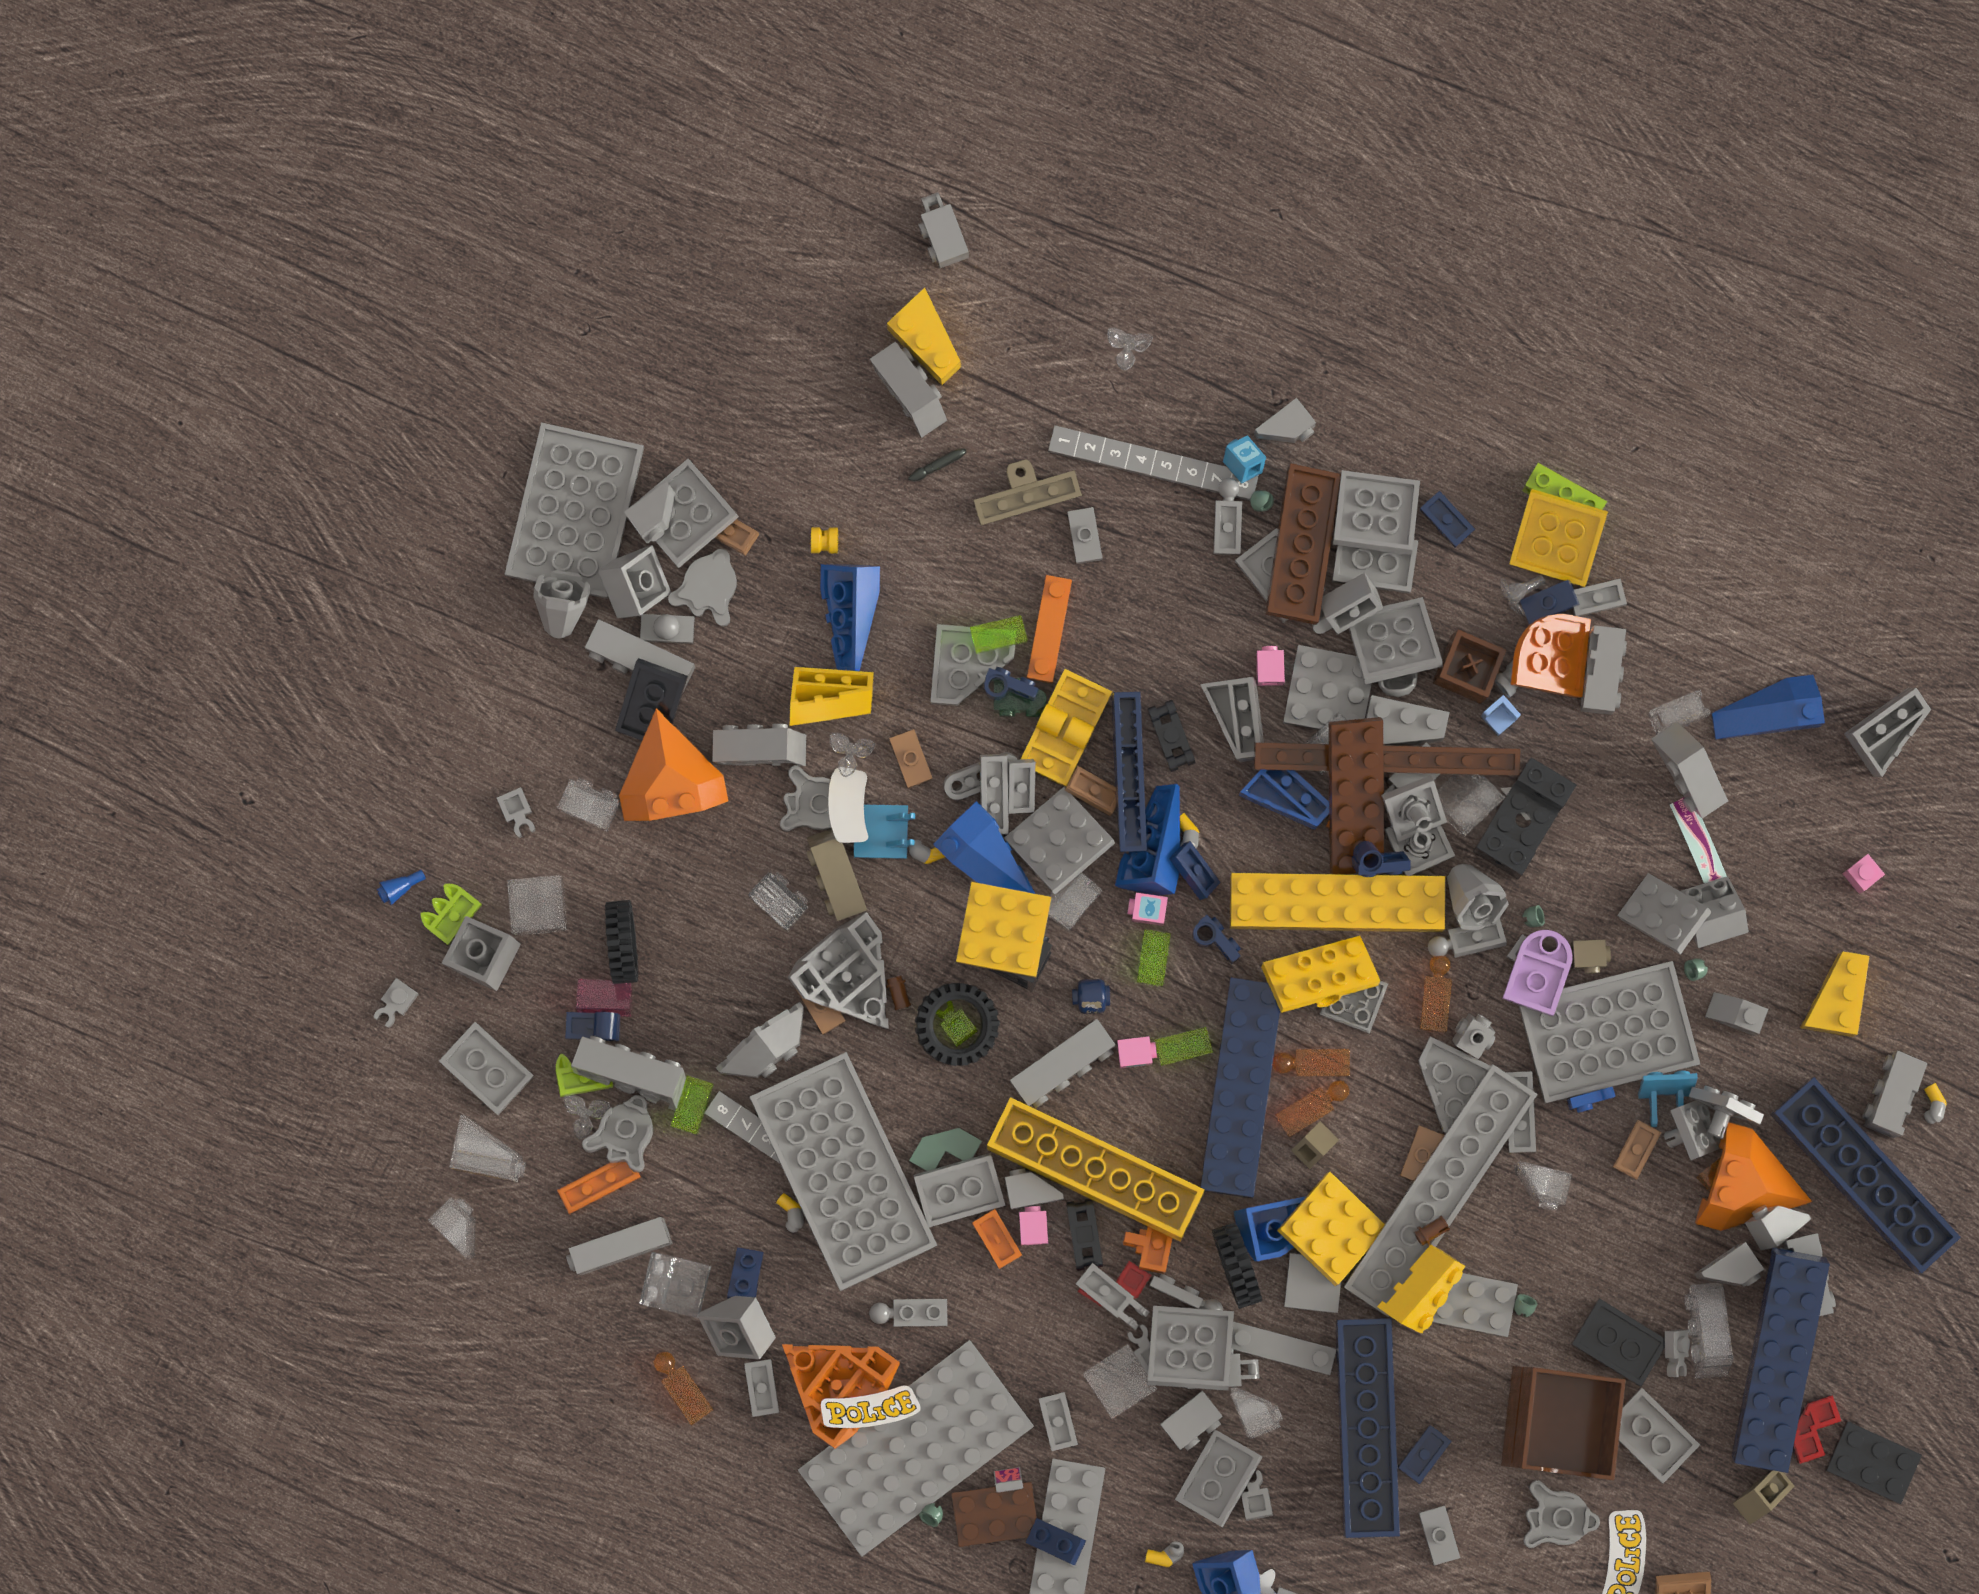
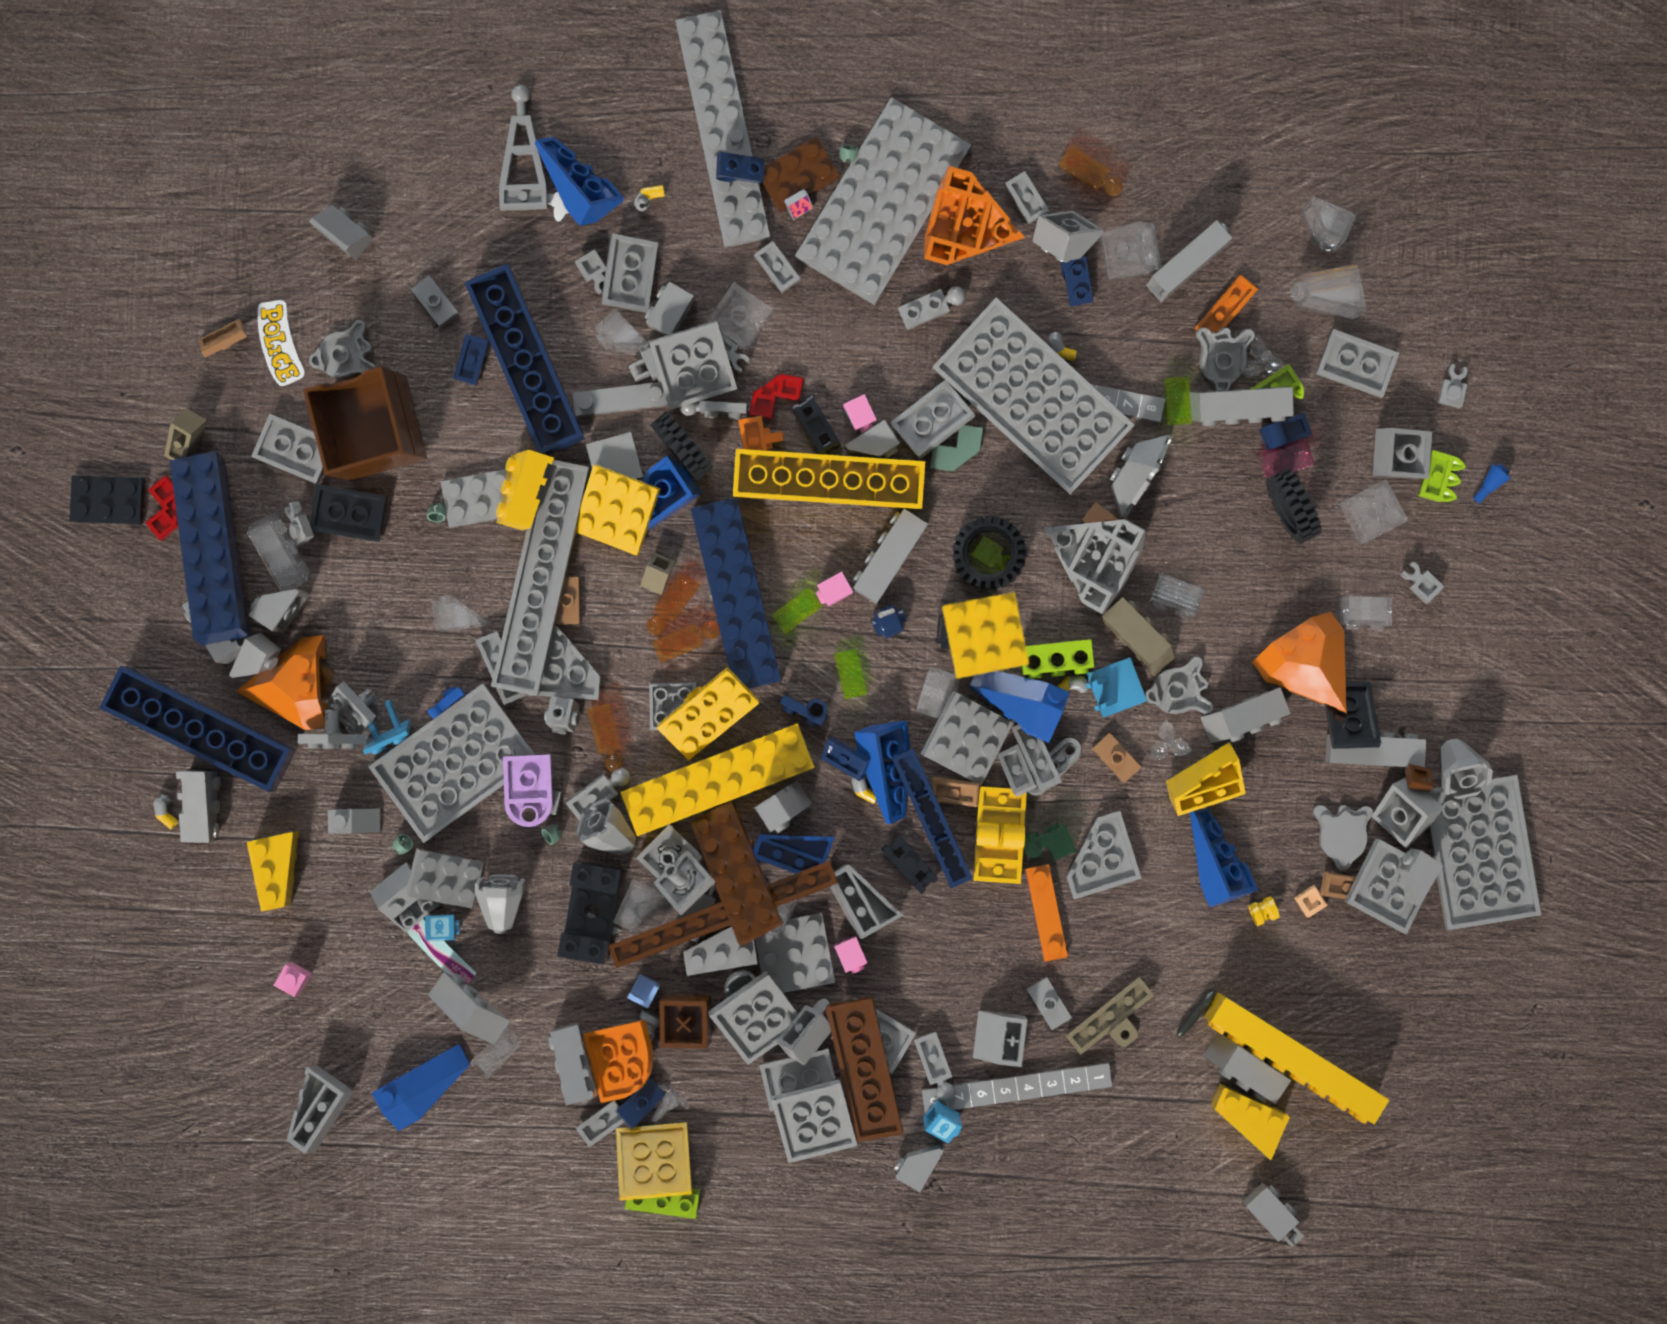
camera: 160 degrees right, 5 degrees up
(609, 610) = (1419, 778): none -> reddish brown plate
(667, 628) = (1362, 784): light grey tile -> none
(771, 531) = (1310, 901): none -> light nougat tile
(847, 806) = (1153, 694): white sticker -> none
(855, 379) = (1301, 1062): none -> yellow brick
(870, 1409) = (932, 211): sticker -> none
(898, 992) = (1047, 560): reddish brown pin -> none
(916, 890) = (1067, 651): none -> lime brick
(997, 1239) = (885, 393): orange plate -> none
(998, 634) = (1087, 889): clear neon green plate -> none
(1022, 687) = (1049, 852): dark blue plate -> none
(1109, 1294) = (775, 383): light grey hinge -> none
(1128, 342) = (1086, 1182): clear plant -> none
(1148, 909) = (871, 711): brick -> none
(1150, 520) = (1000, 1038): none -> light grey slope
(1261, 500) = (913, 1092): sand green hinge -> none
(1281, 845) = (783, 806): none -> light grey wedge
(1390, 863) = (694, 825): dark blue plate -> none
(1431, 1231) = (534, 539): reddish brown pin -> none
(1447, 519) = (753, 1139): dark blue plate -> none
(1590, 955) = (492, 820): dark tan brick -> none
(1614, 869) = (500, 900): none -> light grey cone
(1636, 1149) = (394, 675): medium nougat plate -> none
(1687, 864) = (441, 928): none -> brick

